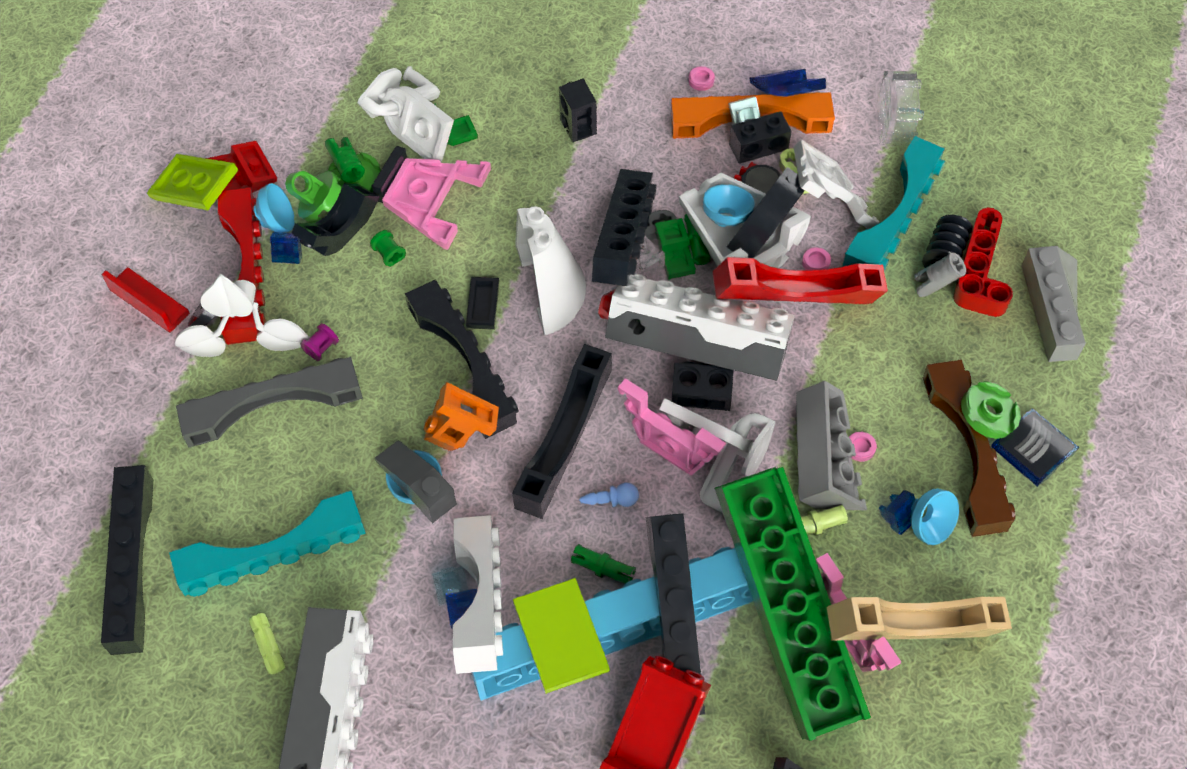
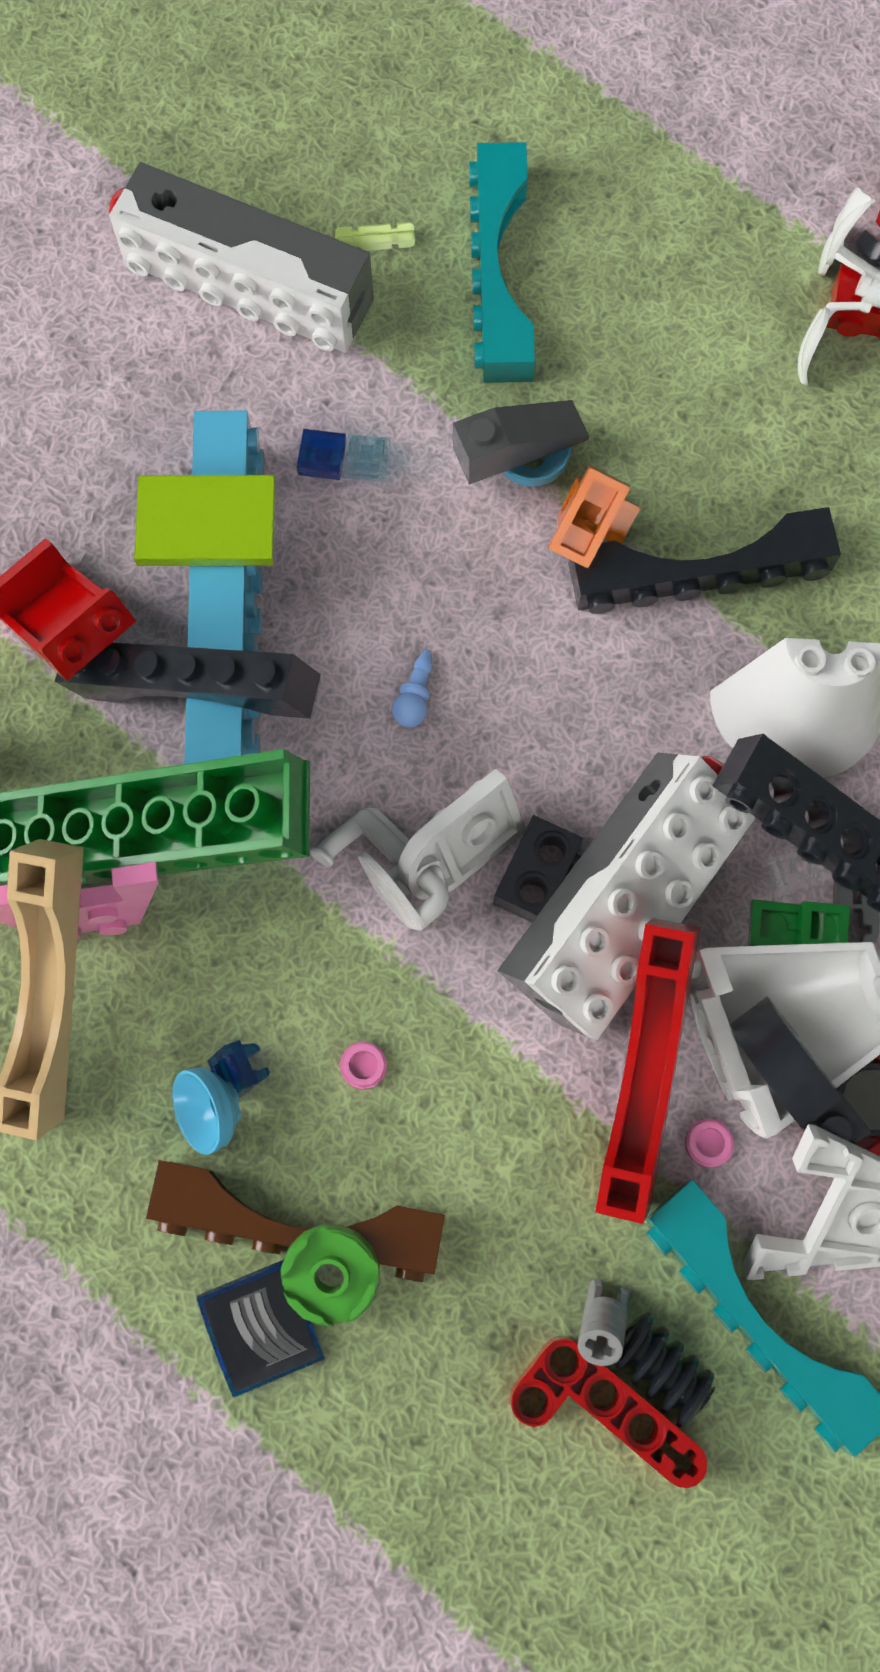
camera: 110 degrees right, 15 degrees up
(123, 596) = (476, 88): black arch -> none
(209, 417) = (714, 236): dark grey arch -> none
(319, 342) = (792, 390): magenta bush -> none
(475, 632) = (232, 409): white arch -> none
(482, 303) = (784, 617): black tile -> none
(549, 463) = (583, 699): black arch -> none
(602, 564) = (322, 642): green pin -> none
(666, 439) = (437, 790): bright pink wing -> none
(728, 200) = (852, 1013): medium azure piece -> none
(816, 521) = (270, 945): yellowish green pin -> none
(825, 450) = (367, 1003): light grey wedge -> none
(1053, 293) = (509, 1508): light grey wedge -> none

